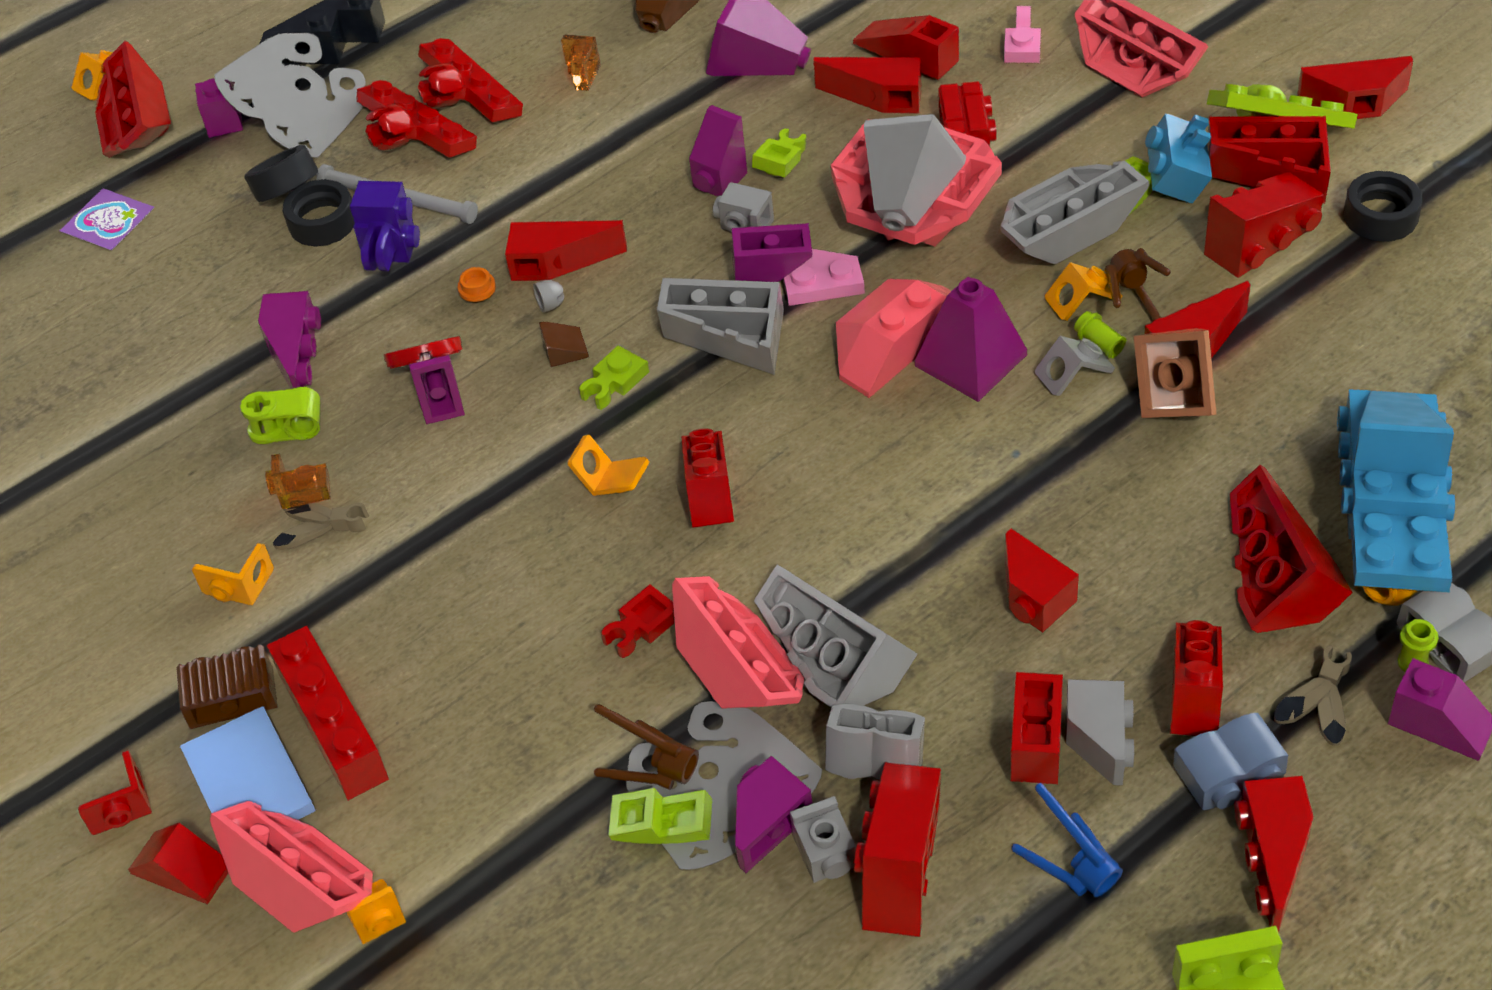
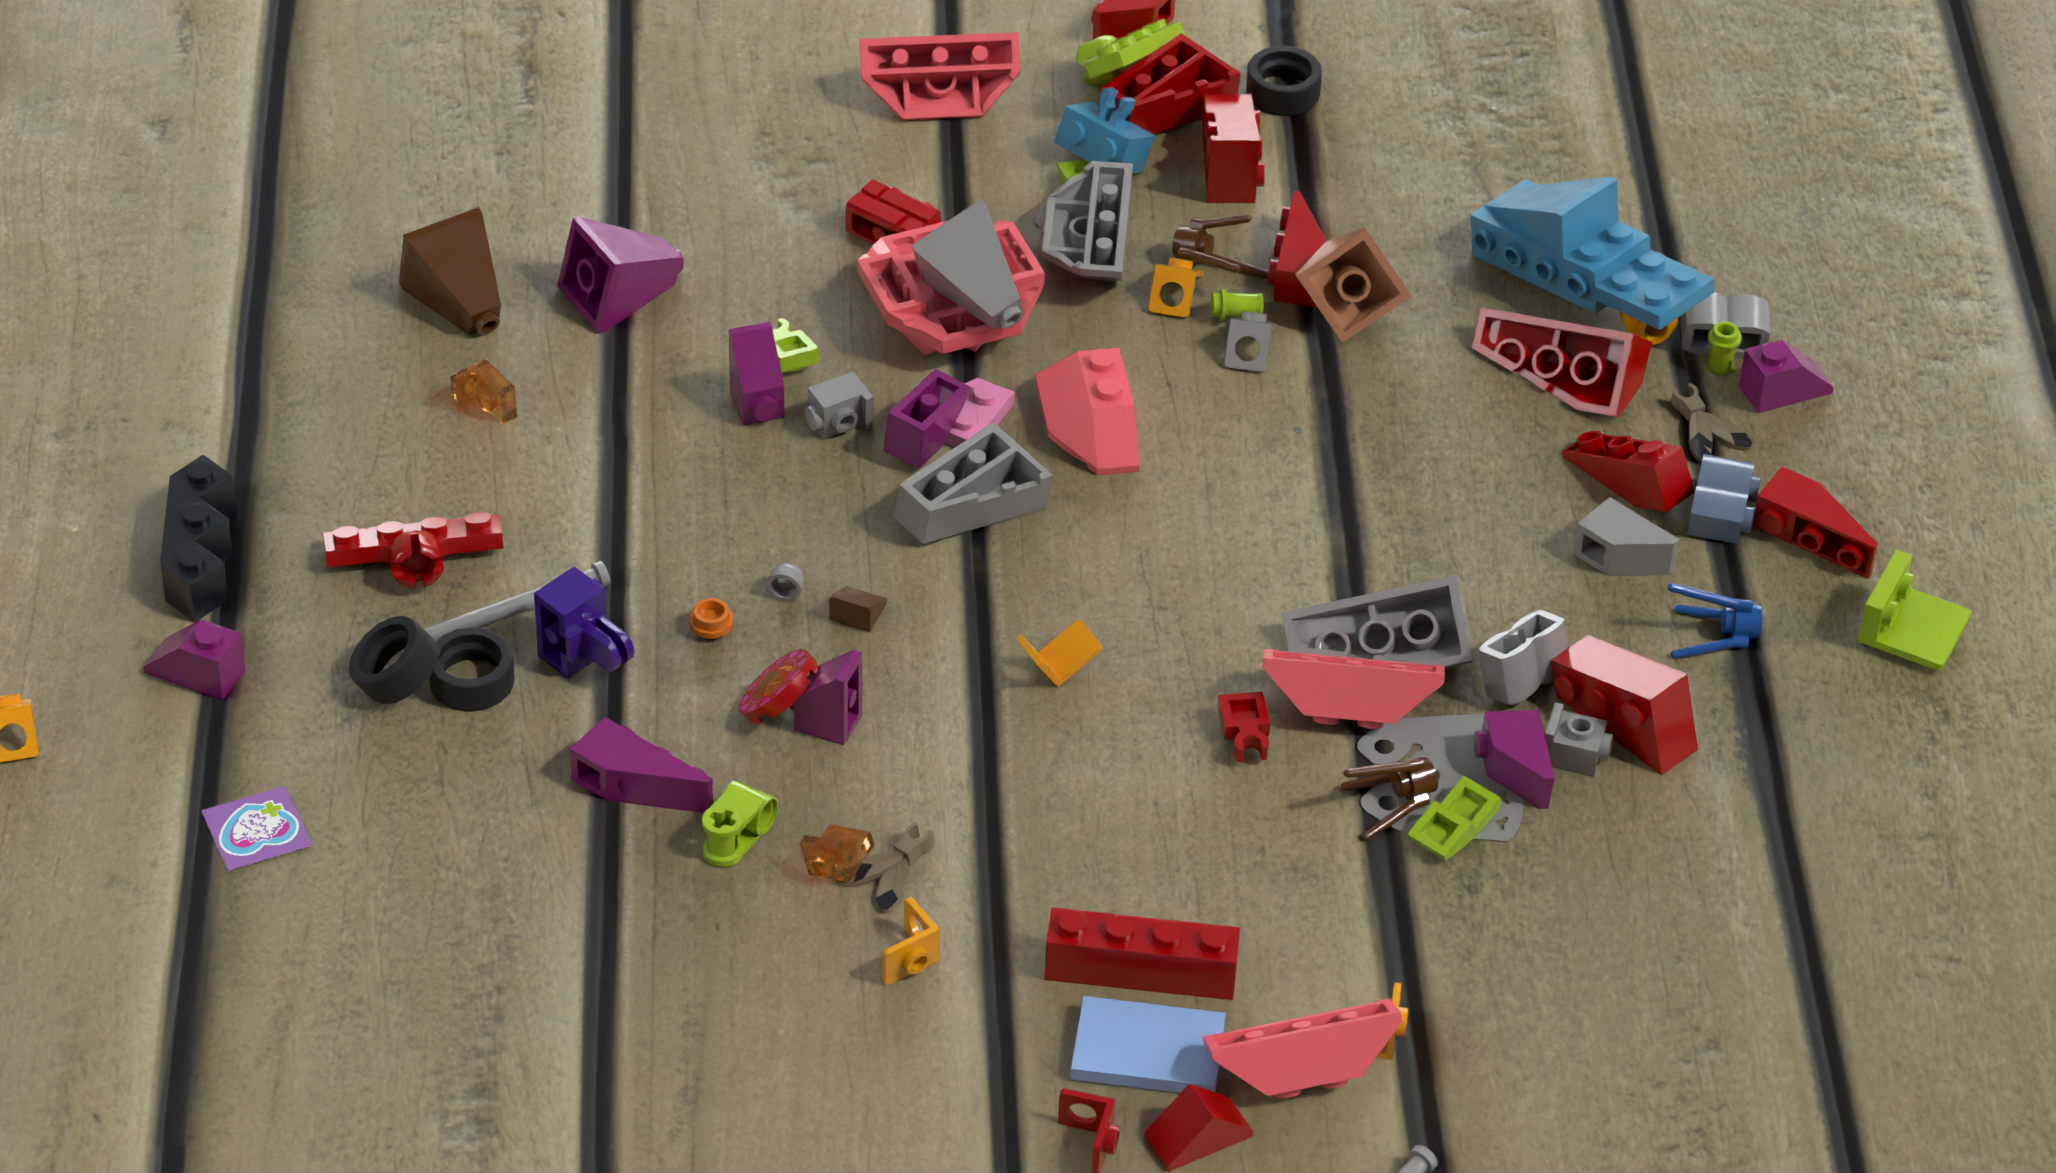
camera: 60 degrees left, 5 degrees down
(129, 103) = (121, 723): red wedge -> none
(226, 686) = (1037, 1007): reddish brown brick -> none
(278, 102) = (285, 609): light grey piece -> none
(458, 77) = (403, 485): red plate -> none
(559, 247) = (729, 547): red slope -> none
(615, 372) = (936, 594): lime plate -> none
(707, 478) = (1141, 603): red slope -> none
(873, 82) = (772, 240): red slope -> none
(914, 37) = (756, 185): red slope -> none
(971, 341) = (1167, 369): magenta slope -> none
(1022, 42) = (826, 133): bright pink plate -> none
(1036, 728) = (1599, 568): red brick -> none
(1037, 583) = (1450, 491): red slope -> none

